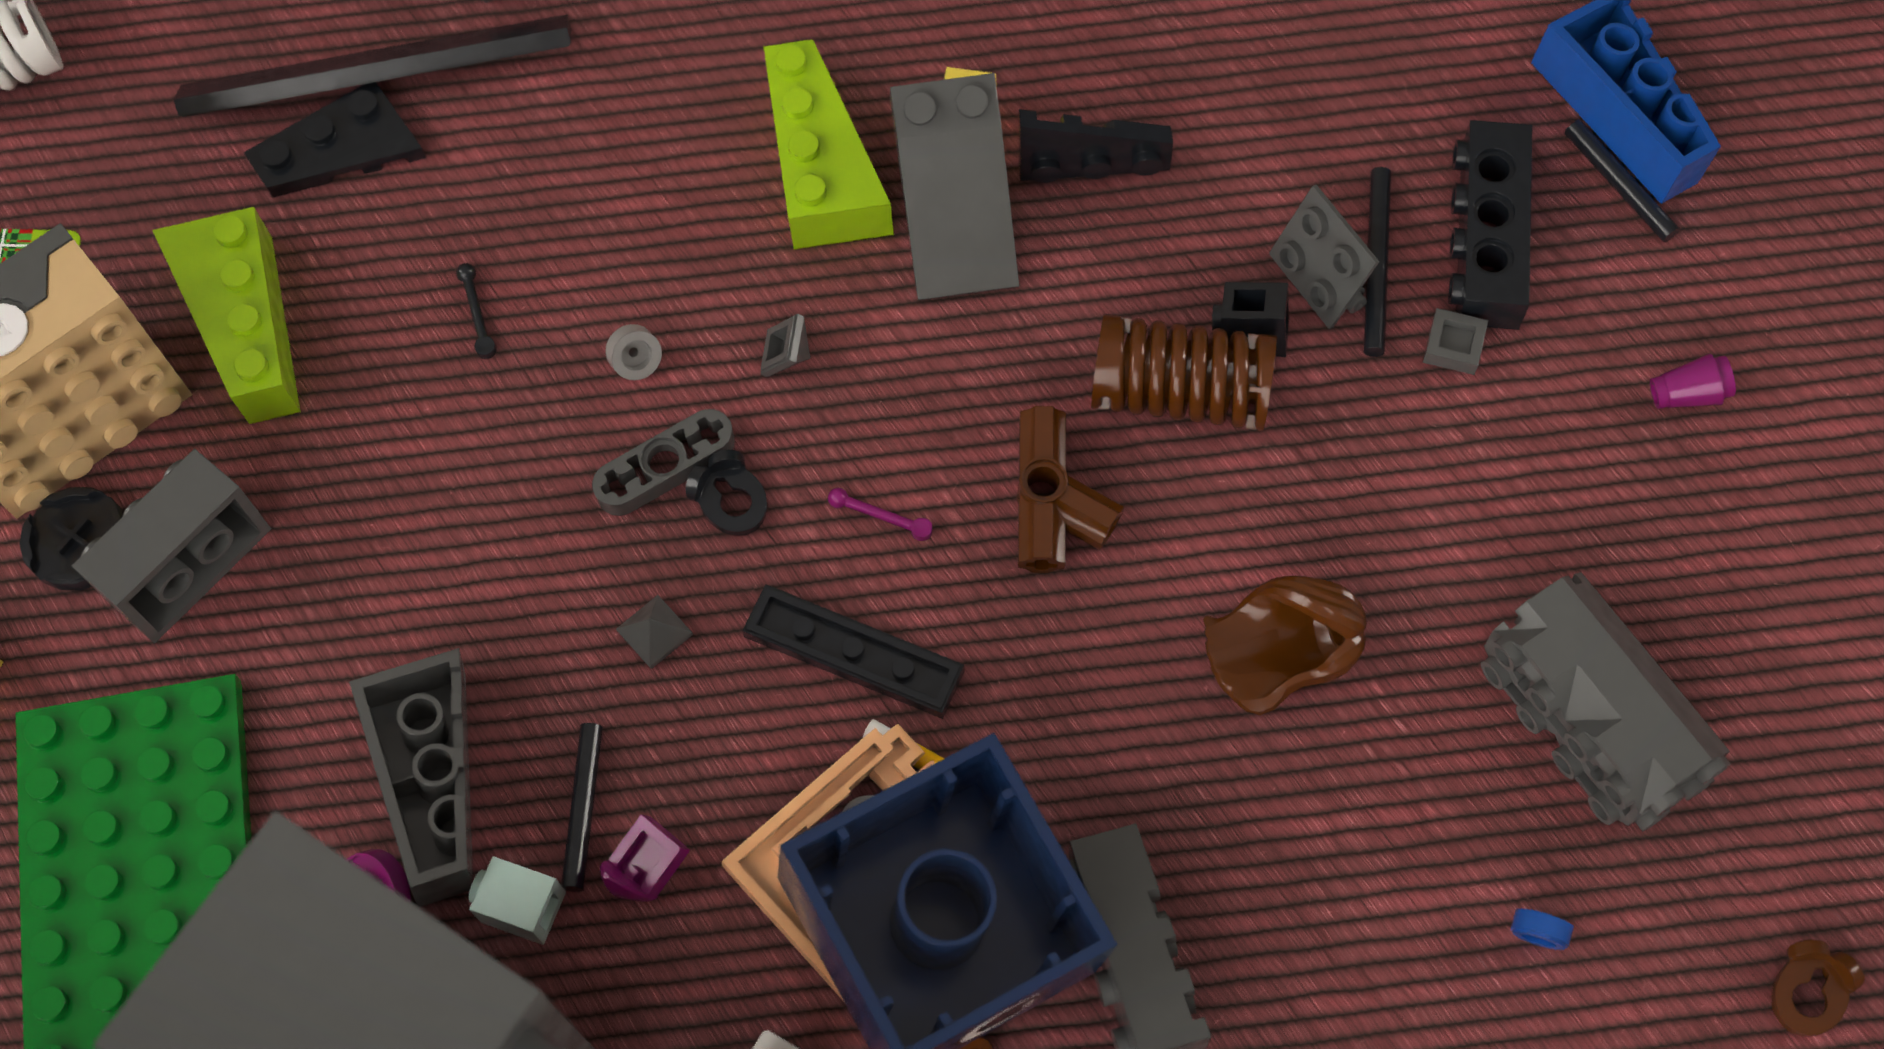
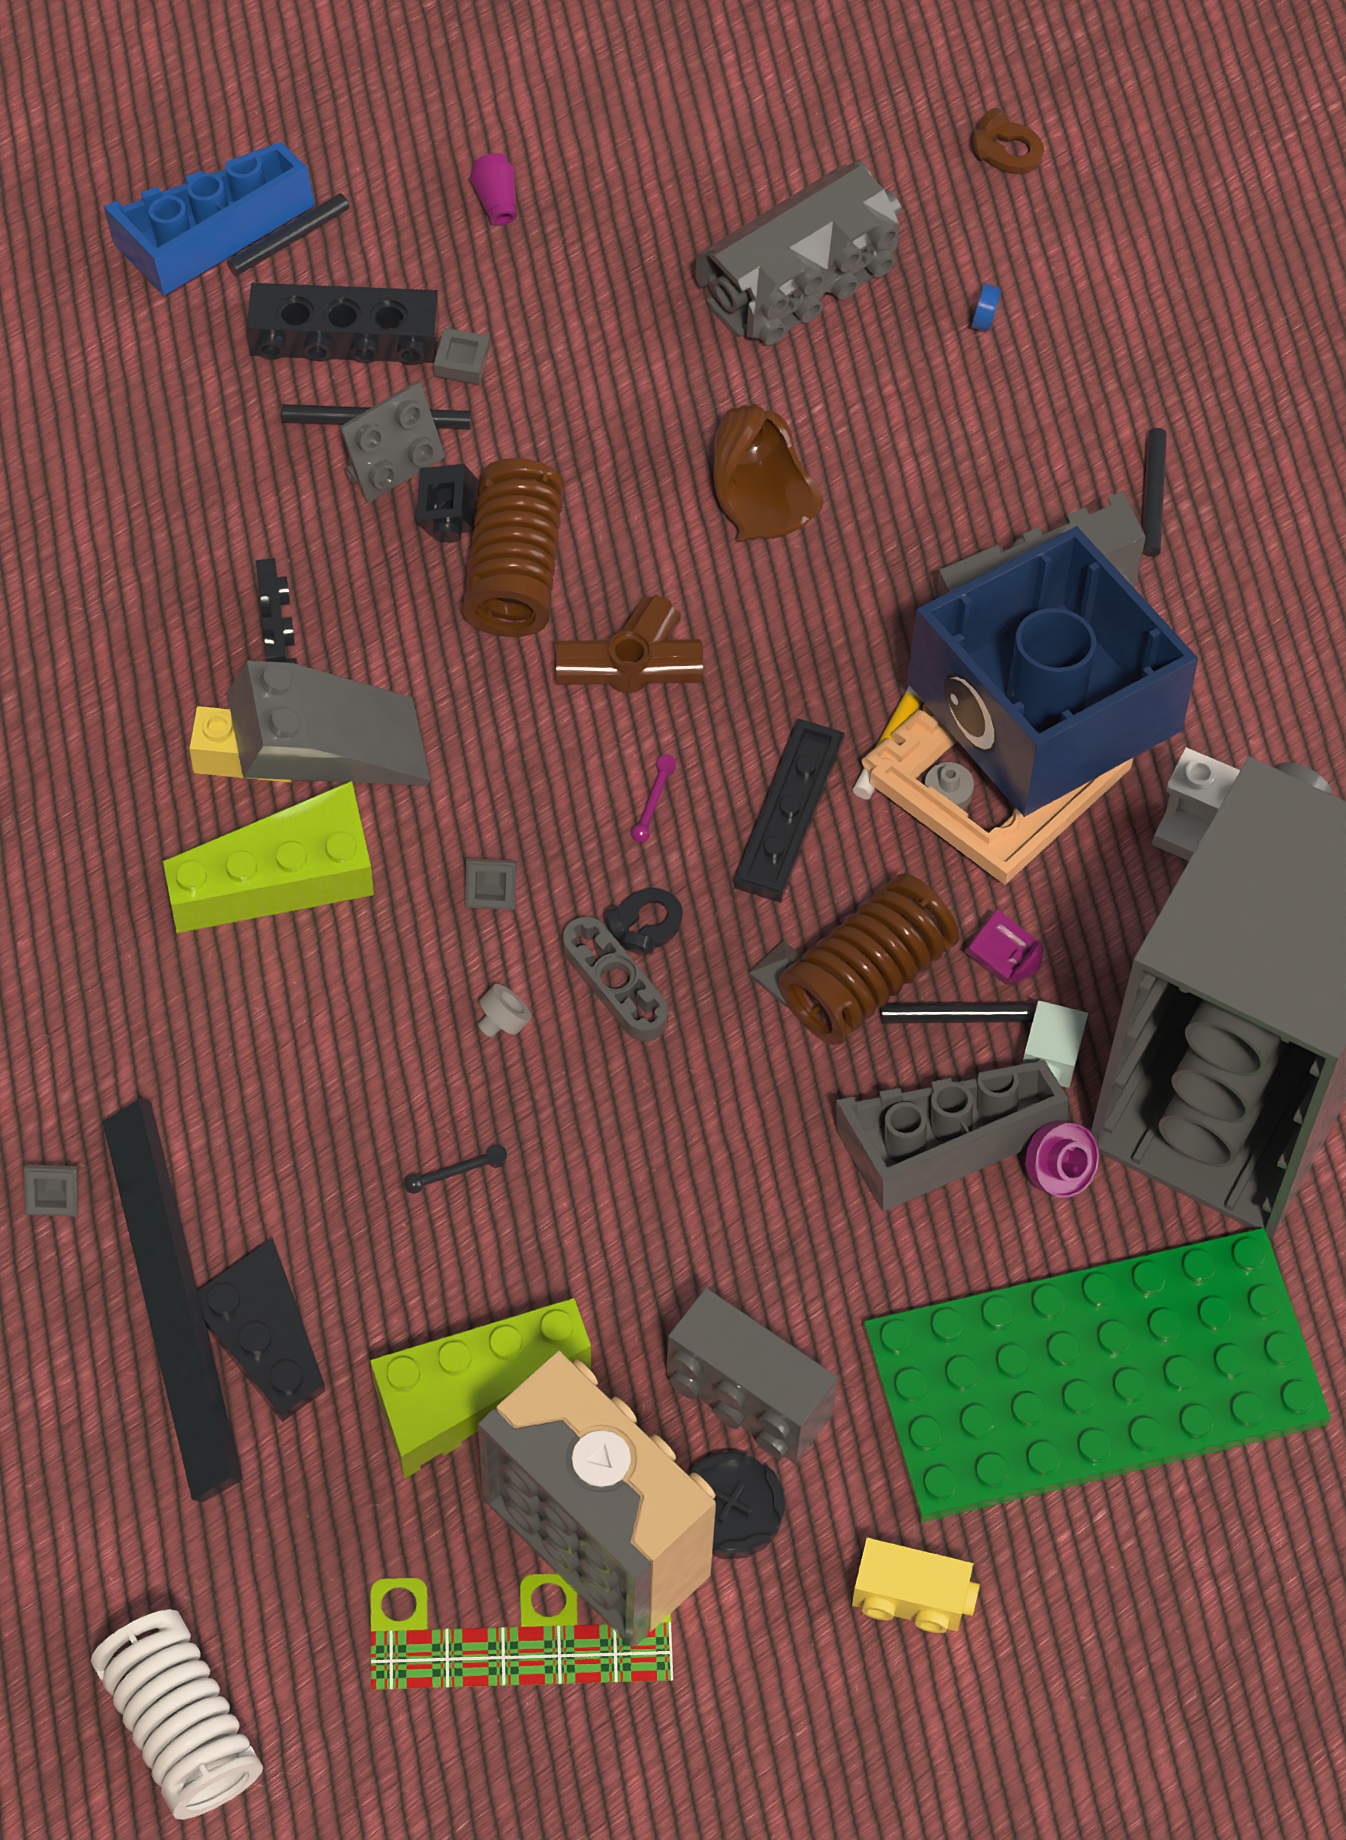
camera: 100 degrees left, 5 degrees down
(634, 702) = (848, 949): none -> reddish brown piece

